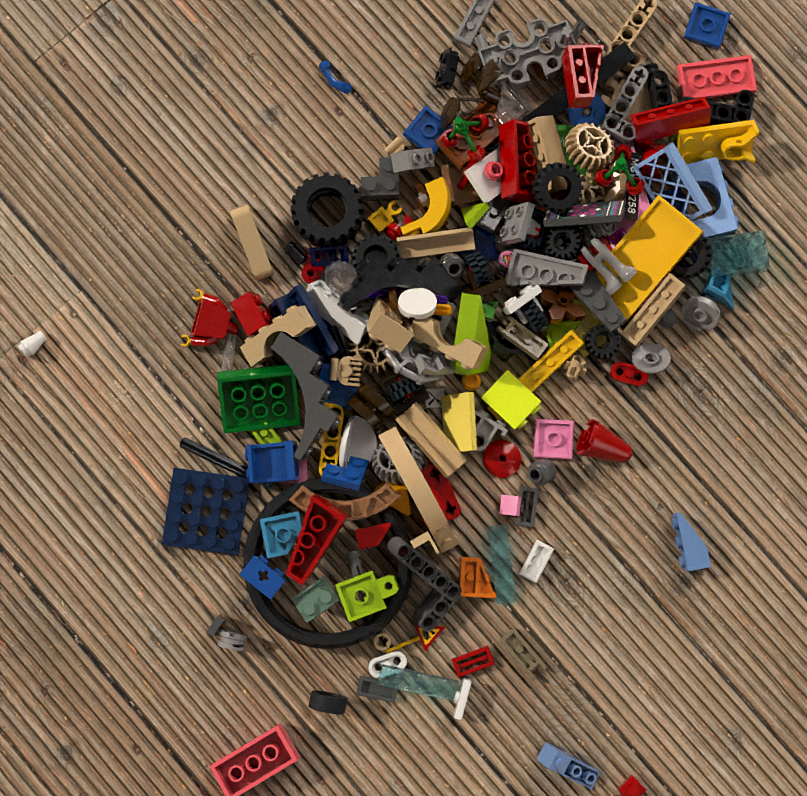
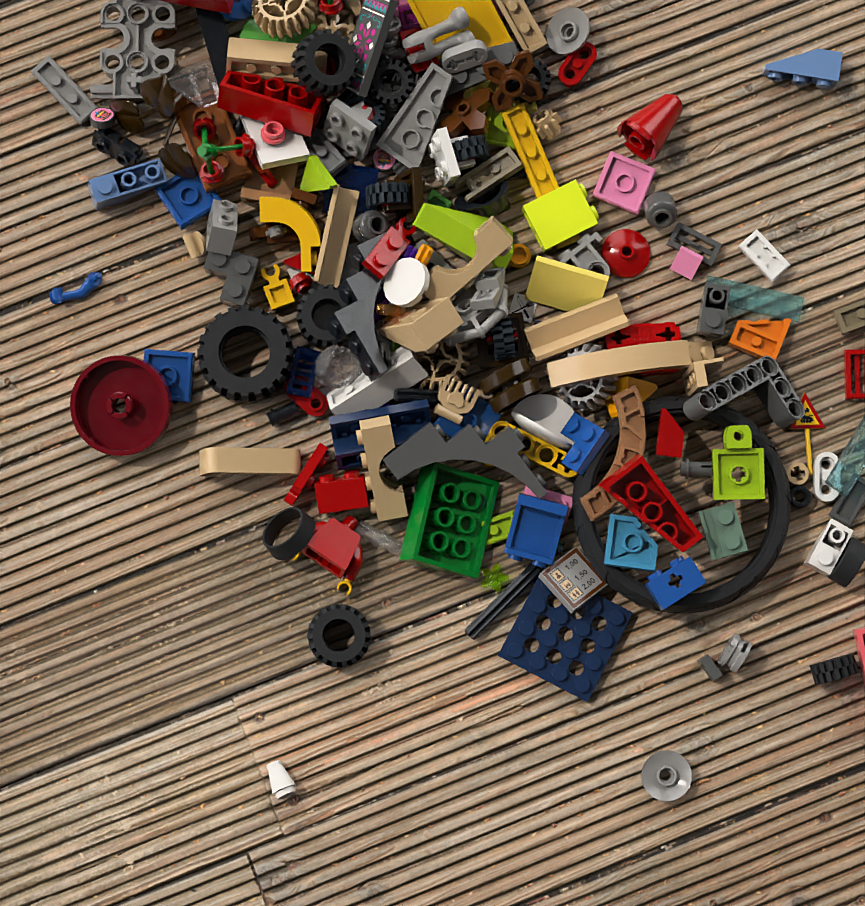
camera: 75 degrees left, 0 degrees up
(117, 624) = (679, 779): none -> light grey dish
(136, 337) = (317, 629): none -> black tyre
(206, 294) = (297, 541): none -> black tyre
(229, 444) = (493, 577): none -> clear neon green plant
(244, 718) = (834, 669): none -> black tyre
(245, 502) = (573, 580): none -> tile
(255, 285) = (306, 476): none -> red plate
(269, 152) = (146, 400): none -> dark red piece
(294, 162) = (177, 370): none -> blue plate
(334, 683) = (828, 547): none -> white slope
(363, 654) = (804, 490): none -> black axle
(421, 83) = (126, 183): none -> medium blue slope
(438, 282) = (388, 249): none -> plate
(455, 212) = (304, 198): none -> reddish brown plate
(463, 50) = (102, 118): none -> dark grey tile
(481, 537) = (713, 310): none -> dark grey slope
(595, 337) = (506, 91): none -> reddish brown plant
(601, 287) = (464, 56): none -> light grey beam

